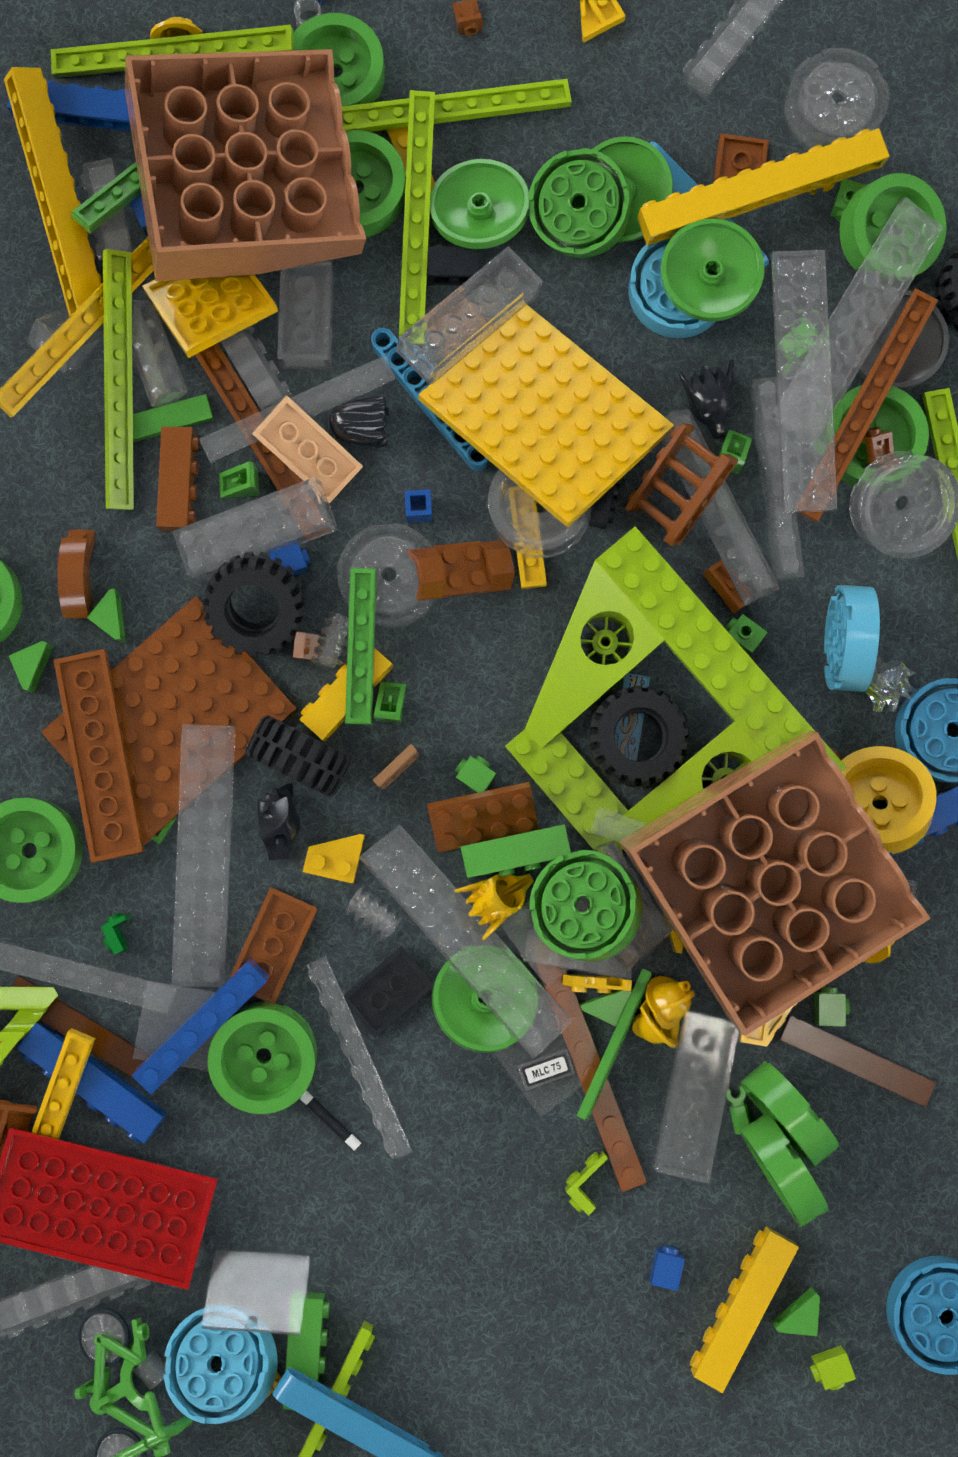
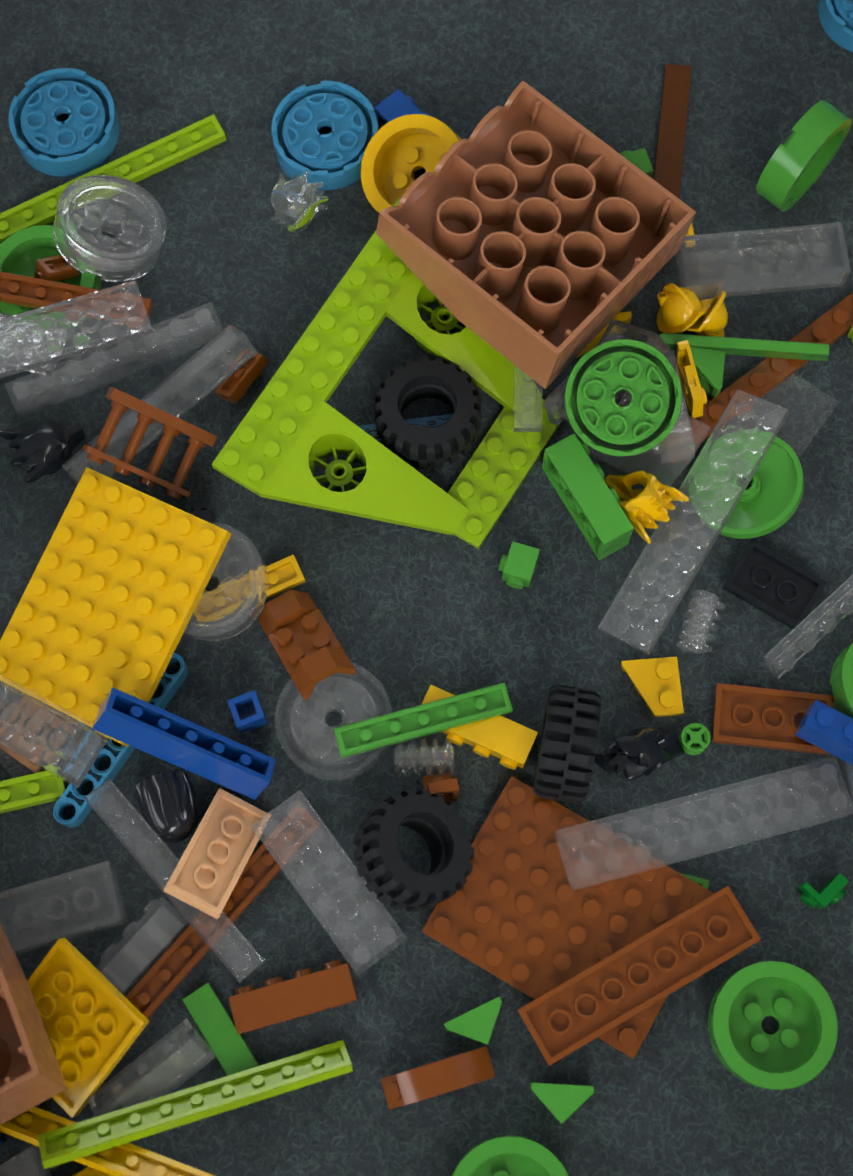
camera: 110 degrees left, 10 degrees down
(239, 481) = (275, 925): bright green slope -> none
(273, 875) = (698, 735): none -> bright green wheel
(294, 557) = (344, 830): blue brick -> none
(390, 702) = (471, 675): bright green slope -> none
(396, 767) = (541, 643): medium nougat tile -> none
(401, 442) = (184, 743): none -> blue brick
(483, 816) = (561, 543): dark orange plate -> none
(546, 1069) = (800, 416): tile -> none
(738, 446) = (92, 410): bright green slope -> none
(738, 1110) = (764, 220): bright green bar -> none
(746, 633) = (283, 342): bright green brick -> none
(791, 1112) = (740, 171): bright green brick -> none
(851, 638) = (264, 234): medium azure brick -> none

